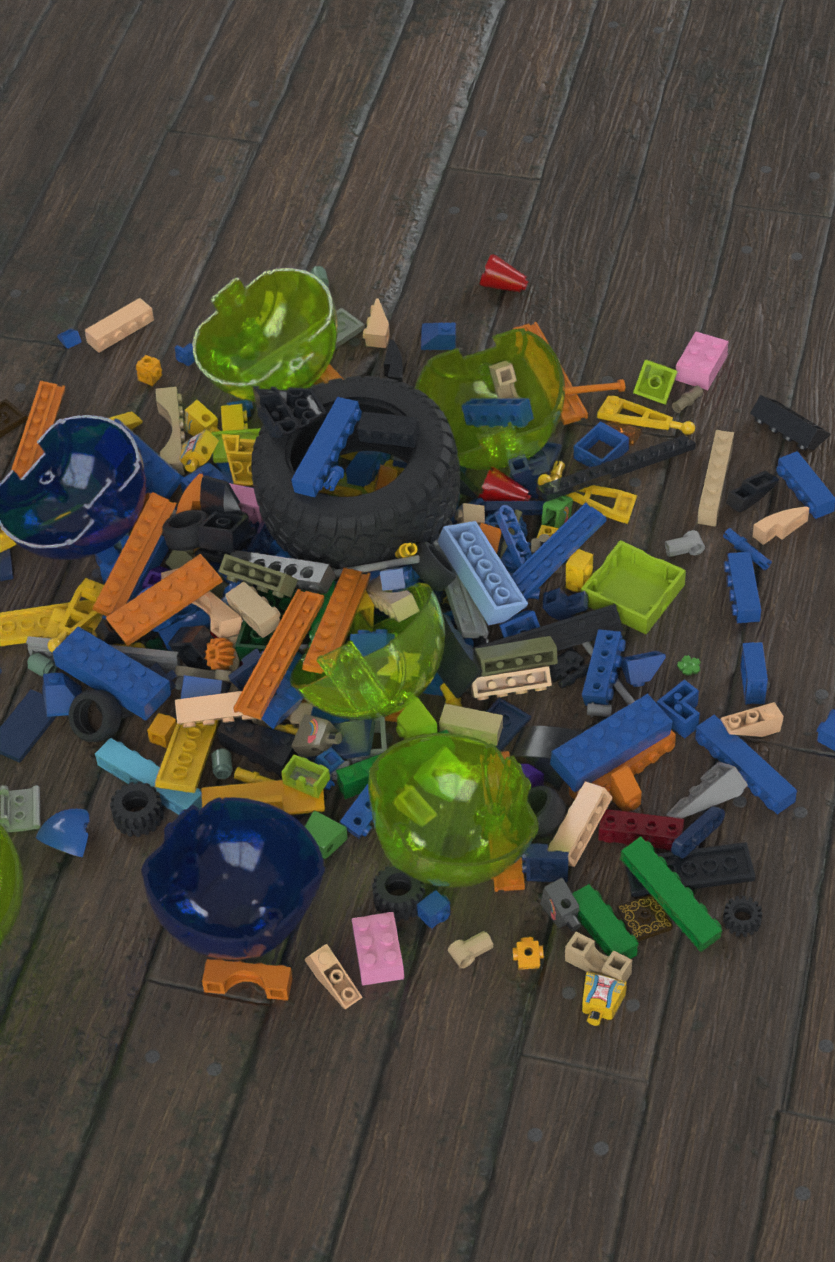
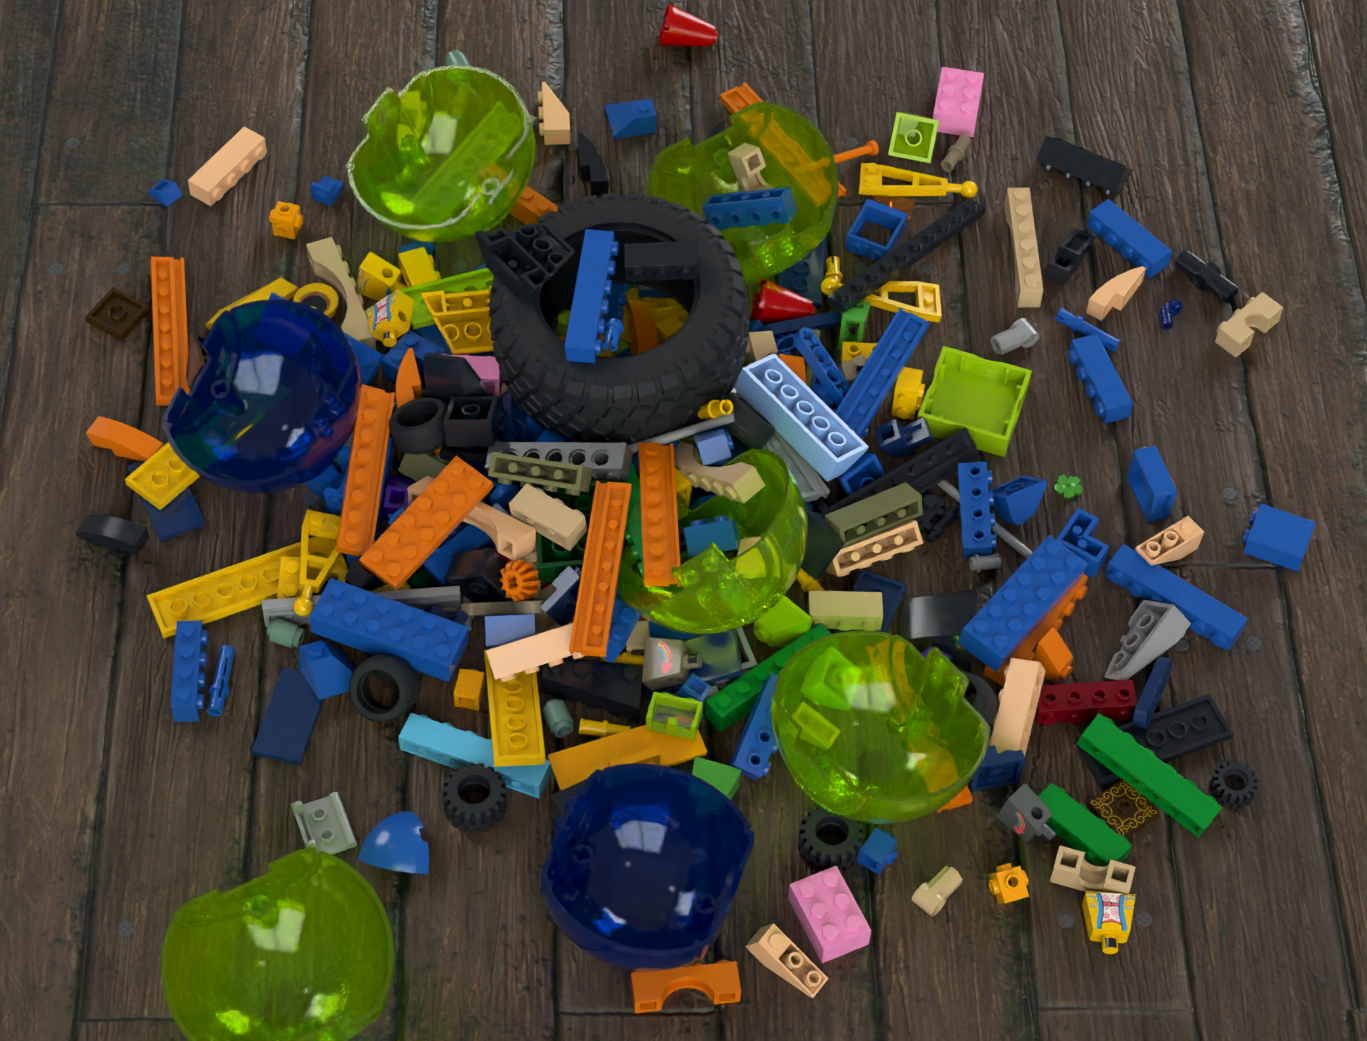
camera: 20 degrees left, 5 degrees up
(152, 432) = (319, 297): none -> tile
(527, 471) = (803, 276): dark blue brick -> none
(820, 546) = (1168, 311): none -> clear blue arm

